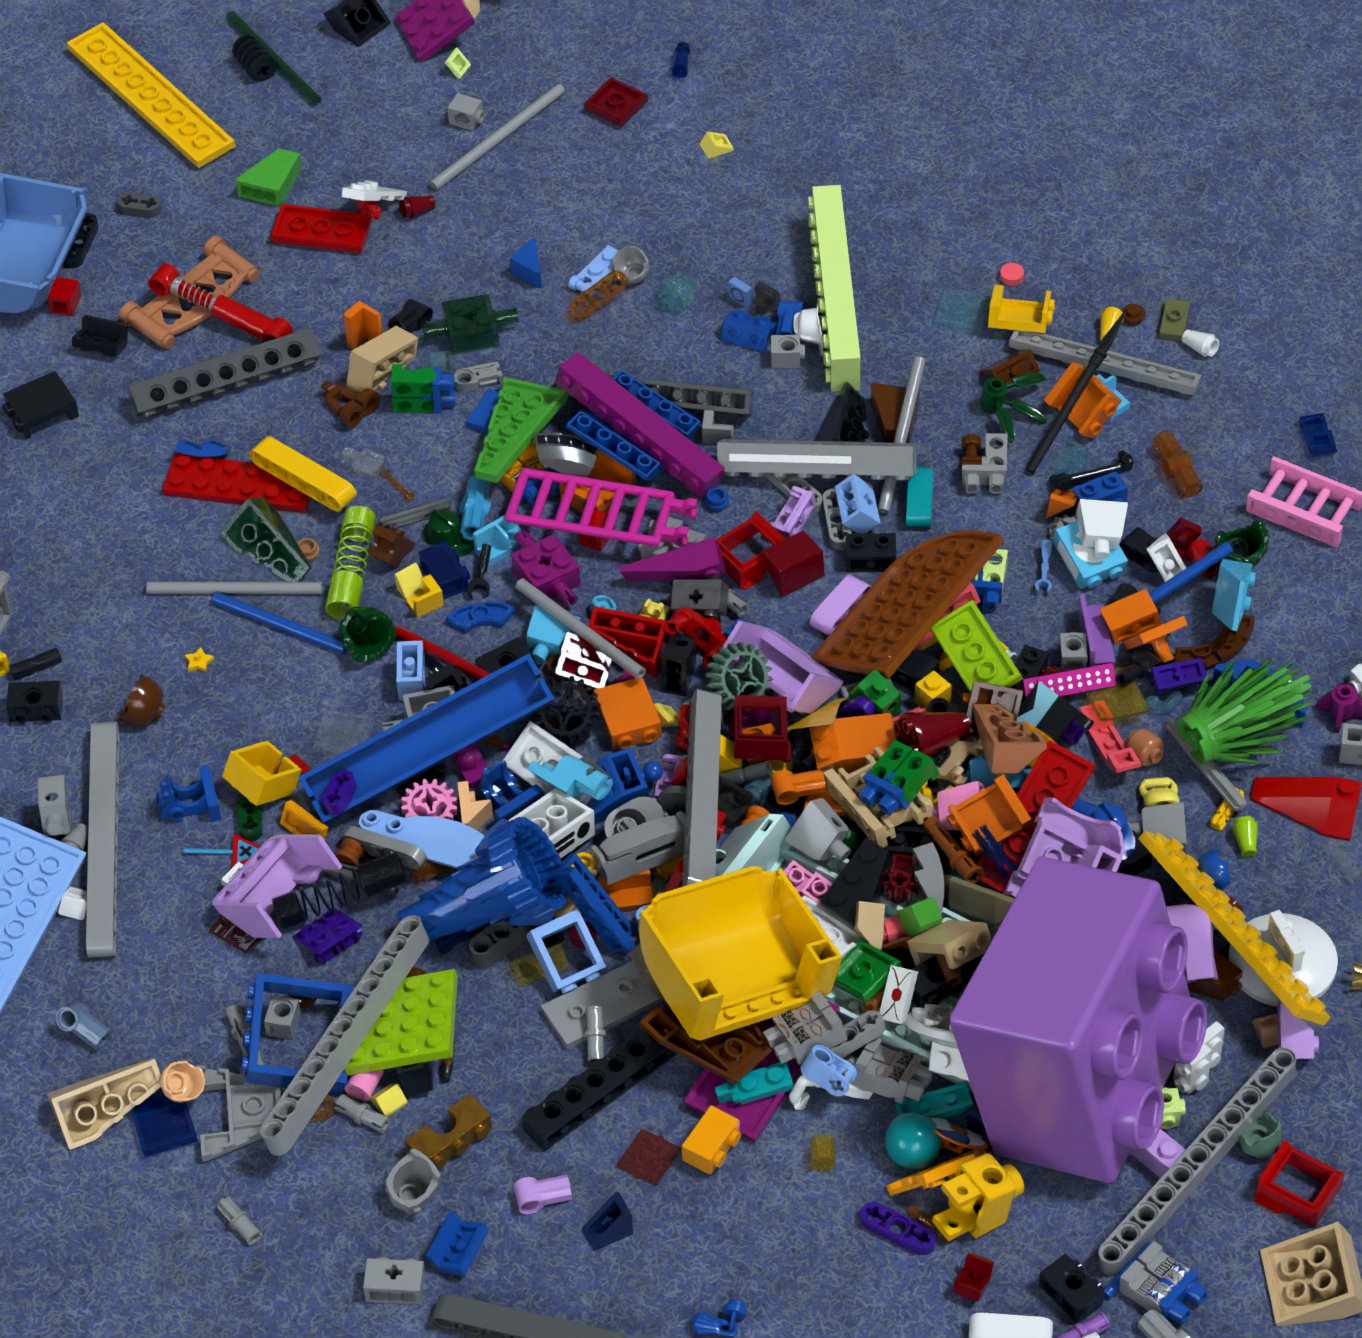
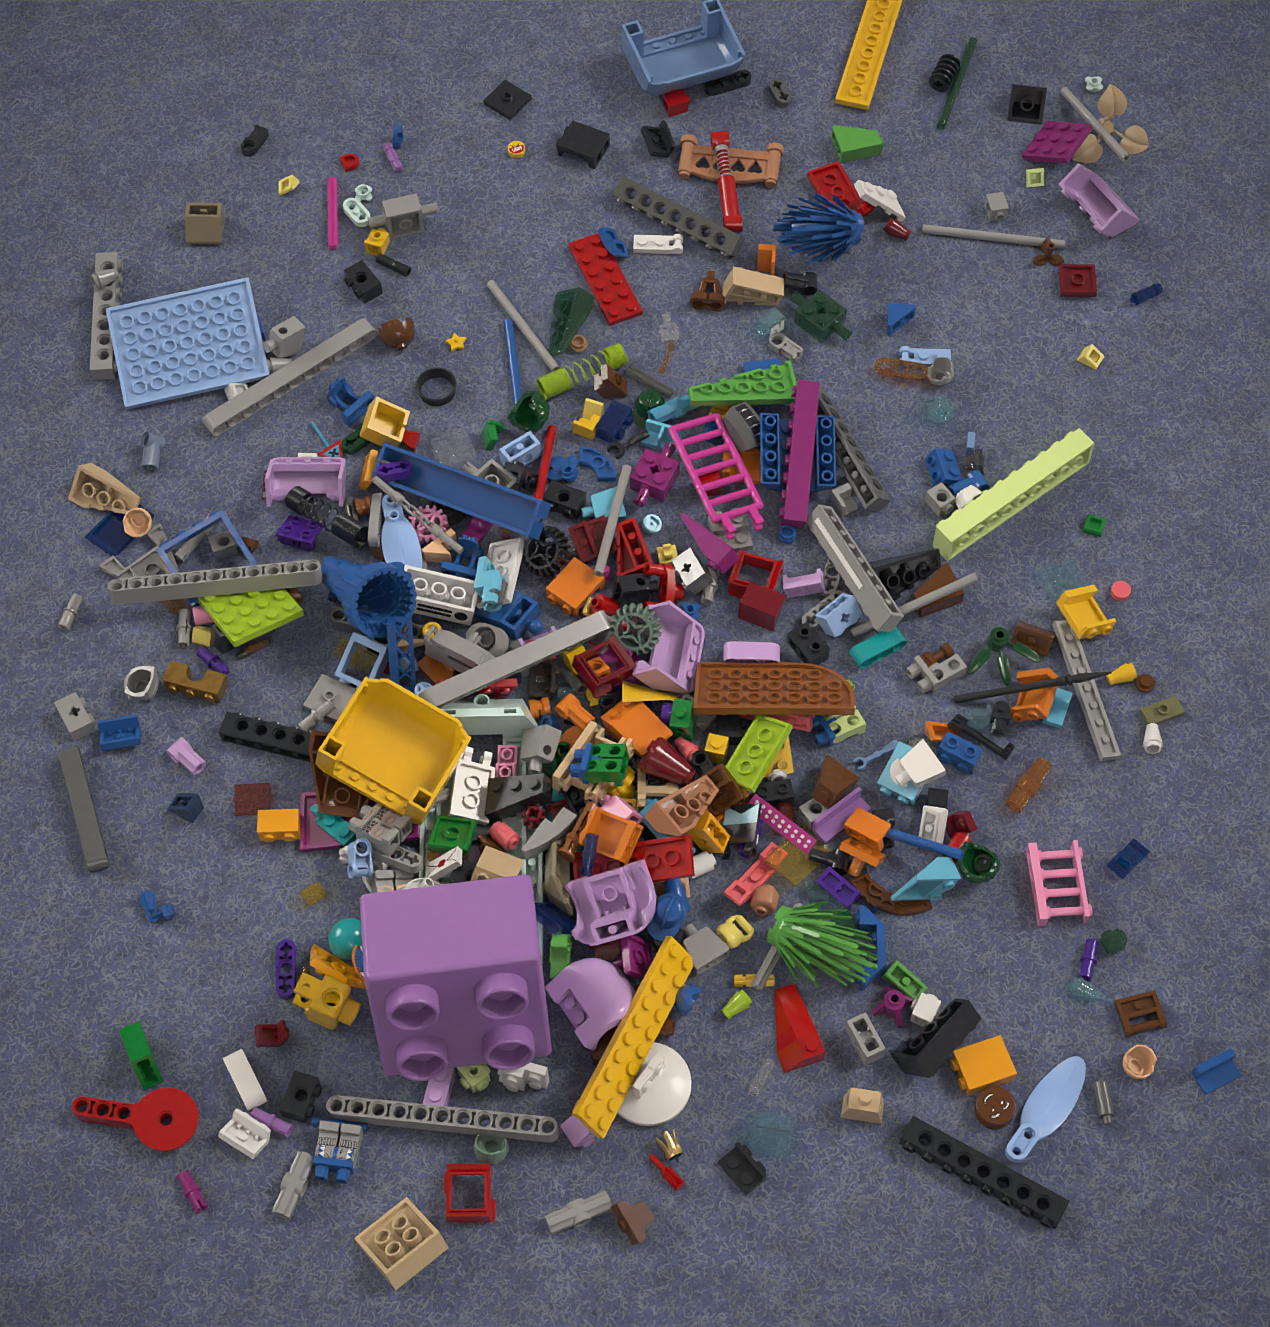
camera: 55 degrees right, 10 degrees up
(238, 413) = (658, 244): none -> white plate
(241, 688) = (436, 372): none -> black tyre
(302, 474) = (626, 304): yellow beam -> none
(358, 688) = (490, 433): none -> green tile
(371, 249) = (820, 228): none -> blue plant
(381, 806) = (436, 530): none -> light grey piece
(421, 390) = (742, 322): green hips -> none
(433, 1105) = (212, 661): none -> dark purple axle
(460, 644) = (563, 469): none -> blue plate
(542, 30) = (1099, 200): none -> lavender windscreen
(563, 104) = (1047, 248): none -> reddish brown plant
(667, 696) = (602, 602): none -> red brick
(870, 922) = (488, 816): tan tile -> none
(918, 252) = (1094, 525): none -> green tile
(920, 917) = (511, 841): bright green piece -> none
(1053, 614) = (833, 782): none -> reddish brown slope
(1094, 440) = (1000, 717): none -> black hips
(1321, 683) = (903, 980): none -> bright green slope

